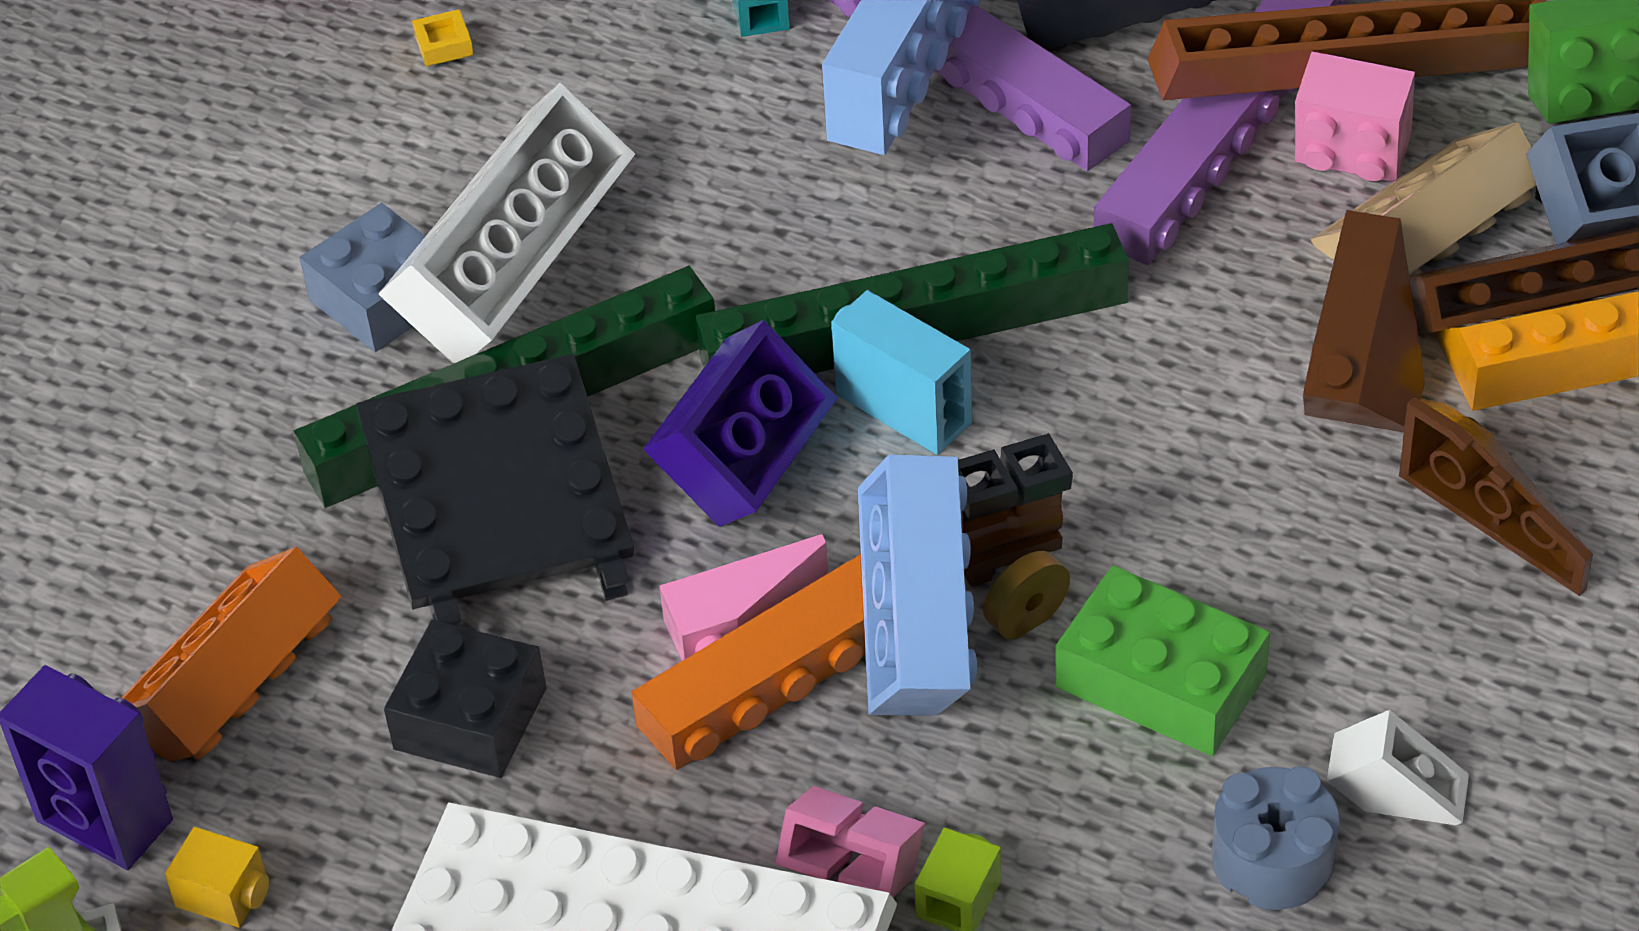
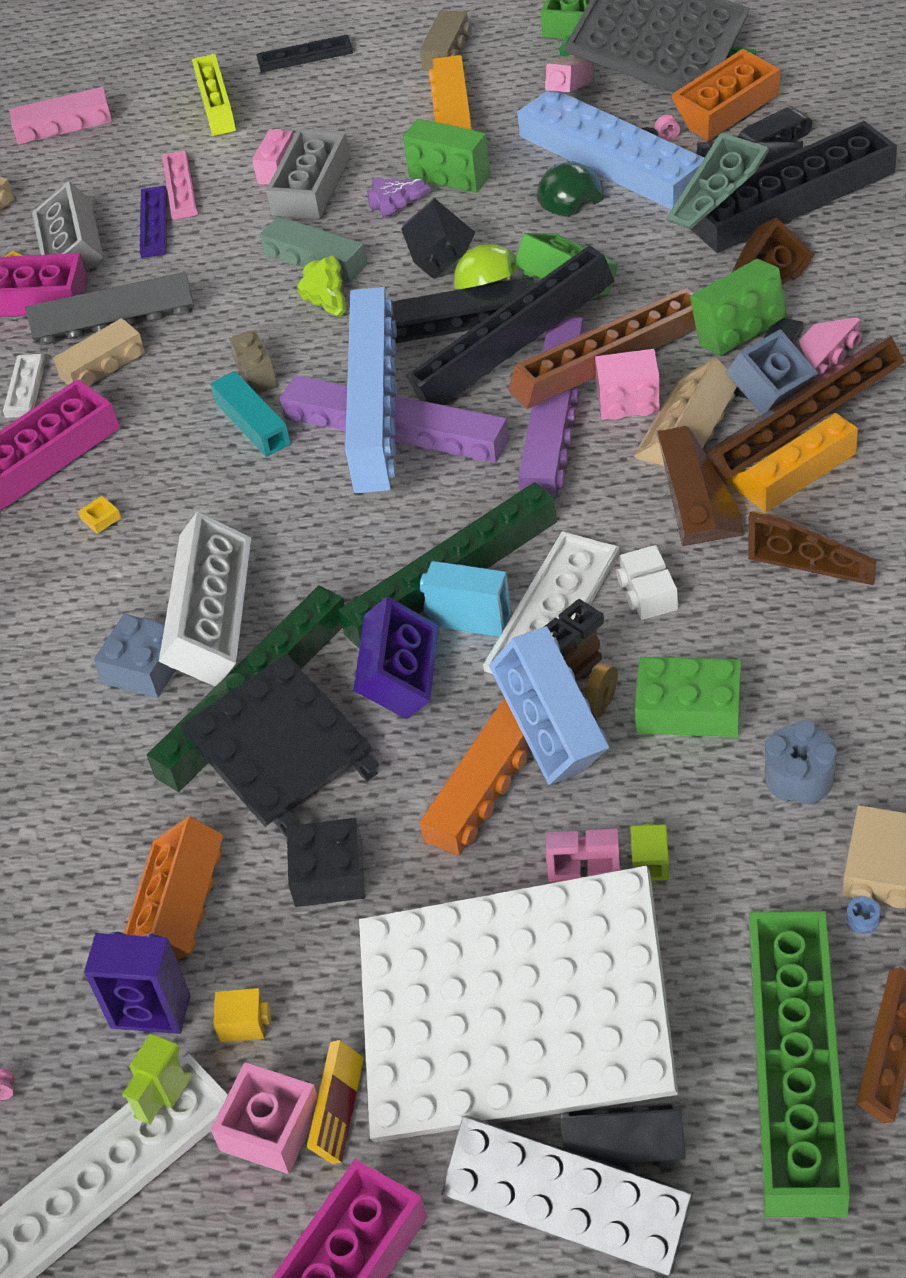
camera: 20 degrees left, 0 degrees up
(723, 598) = (438, 756): bright pink slope -> none
(1082, 402) = (569, 573): none -> white tile
(1206, 452) = (648, 587): none -> white piece
(1396, 772) = (839, 706): white slope -> none

